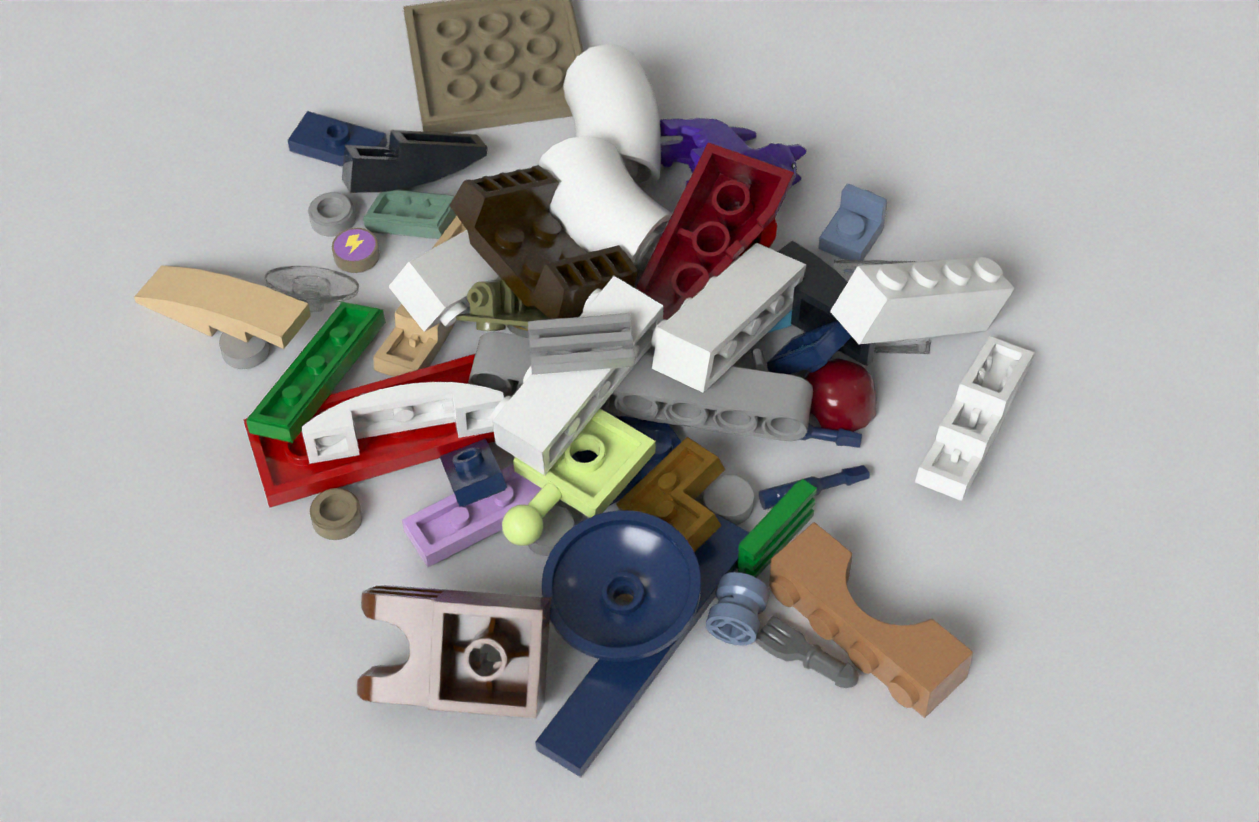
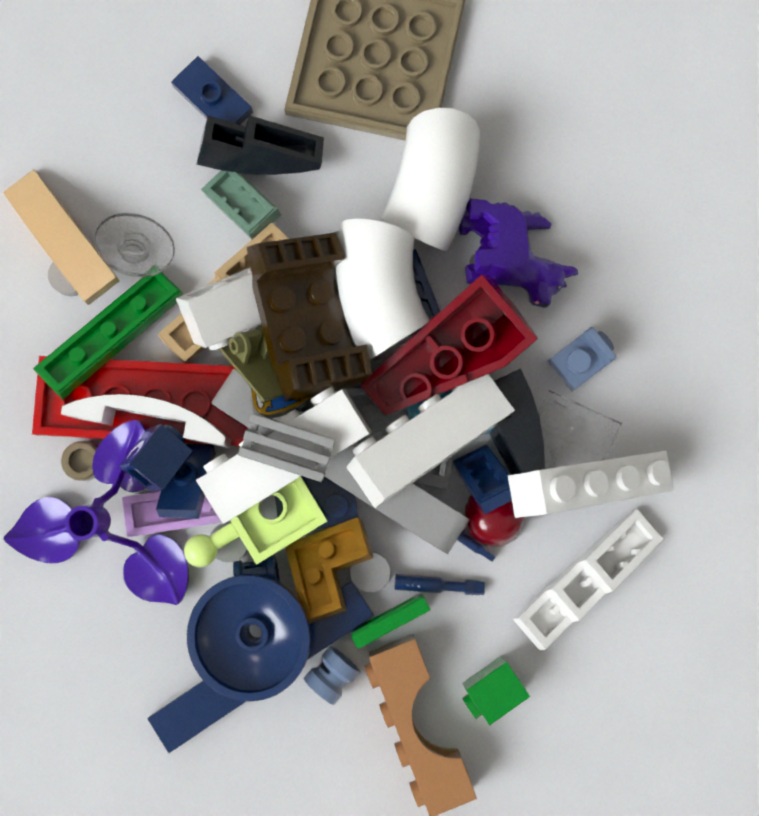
camera: 20 degrees right, 30 degrees up
(331, 213) = (181, 171): light grey tile -> none
(355, 250) = (185, 216): tile -> none
(390, 476) = (52, 529): none -> dark purple plant
(430, 444) = (156, 457): none -> dark blue brick
(445, 654) = (111, 639): brick -> none
(791, 645) = (359, 711): dark grey piece -> none
(933, 553) = (494, 691): none -> green brick

